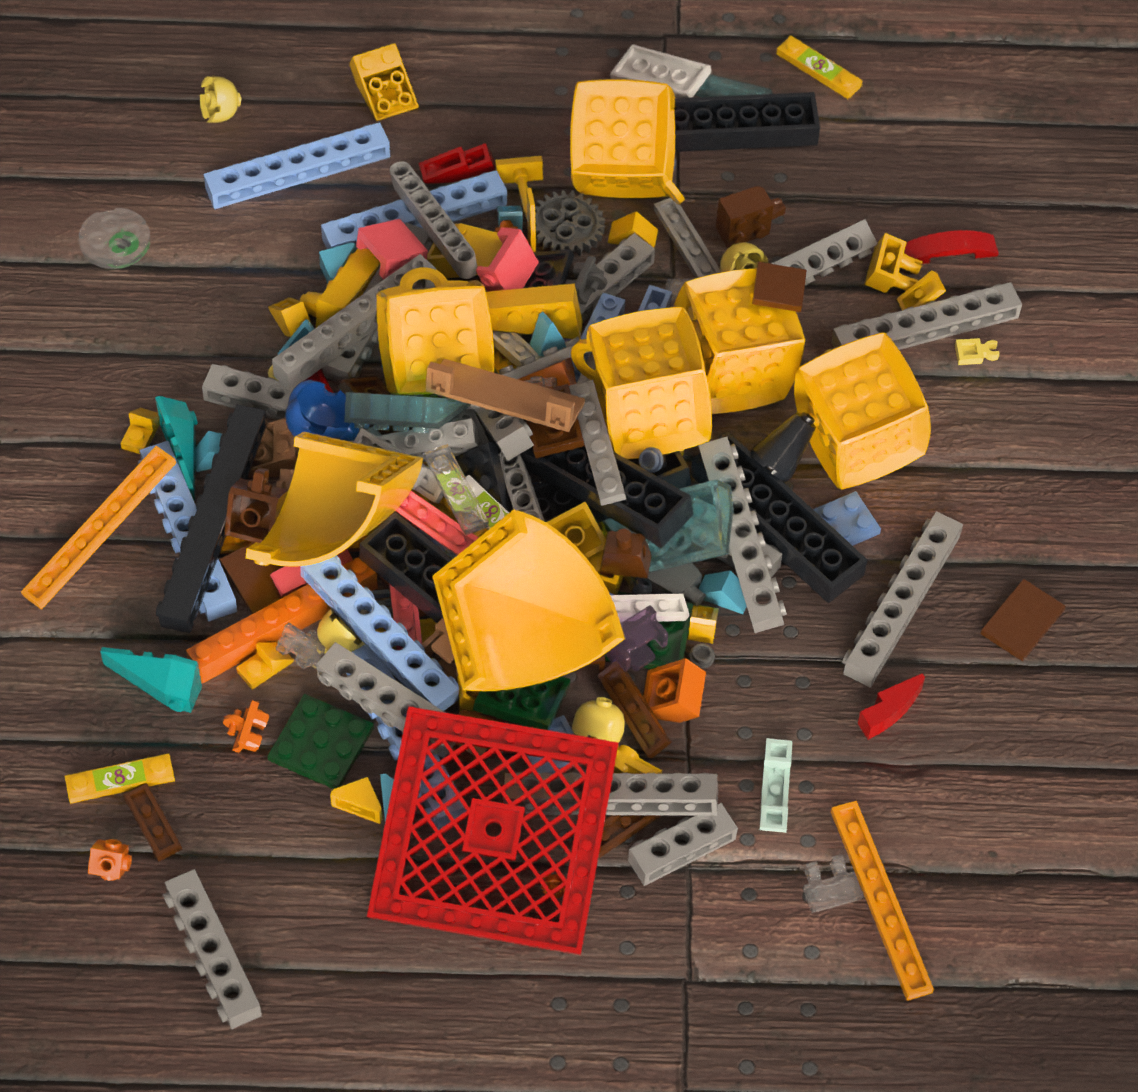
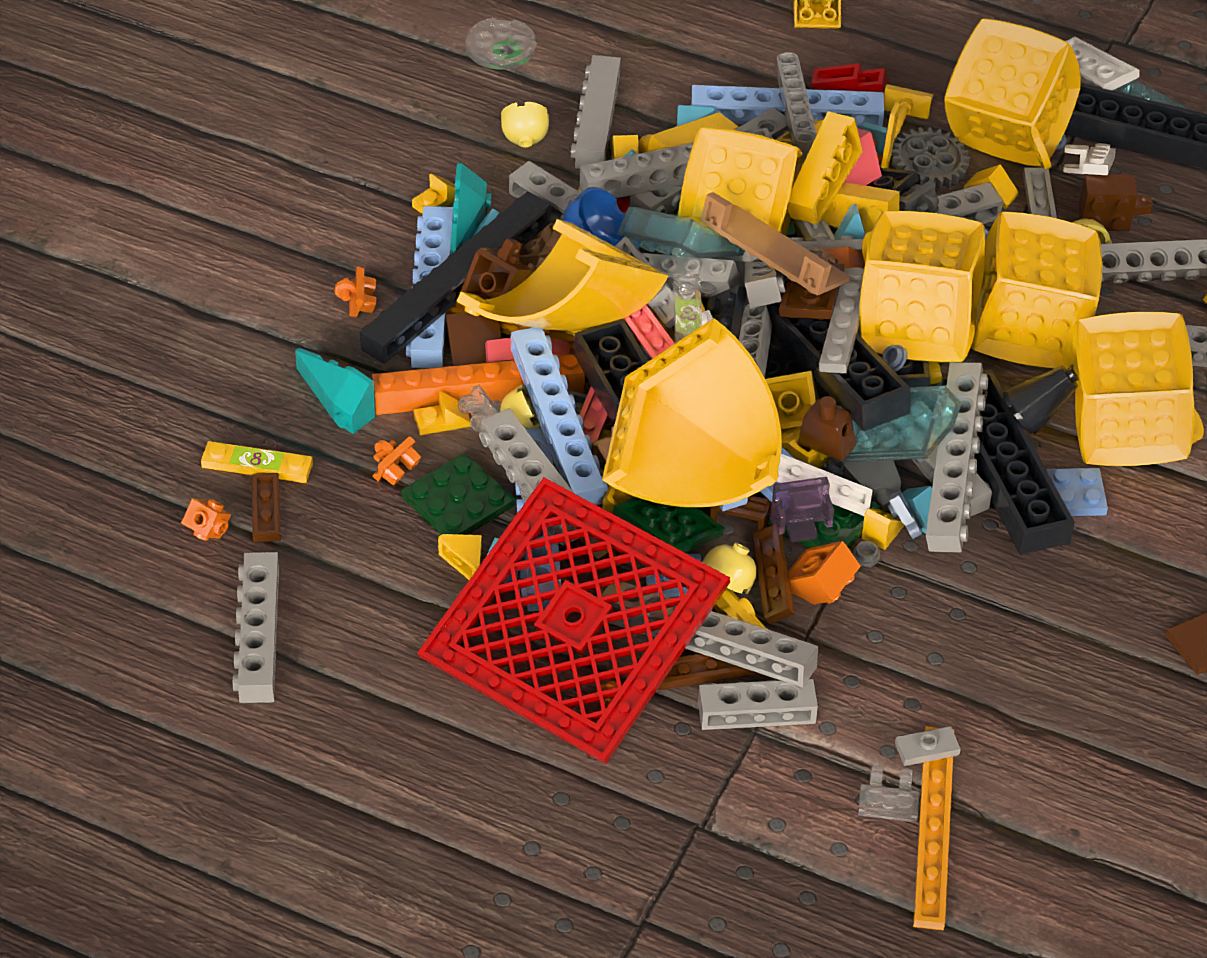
camera: 25 degrees right, 10 degrees down
(98, 527) = (351, 254): light orange plate -> none
(118, 564) = (356, 292): none -> orange hips
(187, 325) = (525, 124): none -> light yellow cylinder
(245, 284) = (597, 110): none -> light grey brick
(296, 165) = (698, 36): light blue brick -> none
(391, 244) = (745, 113): coral panel -> none
(504, 285) = (825, 168): none -> yellow wedge
(713, 174) = (1096, 161): none -> white plate
(714, 603) = (900, 509): none -> plate
(775, 785) = (880, 689): light aqua slope -> none
(779, 286) = (1094, 245): reddish brown tile -> none
(843, 827) = (927, 746): none -> light grey plate
(867, 668) = (1097, 574): light grey brick -> none
(890, 706) = (1036, 661): red slope -> none

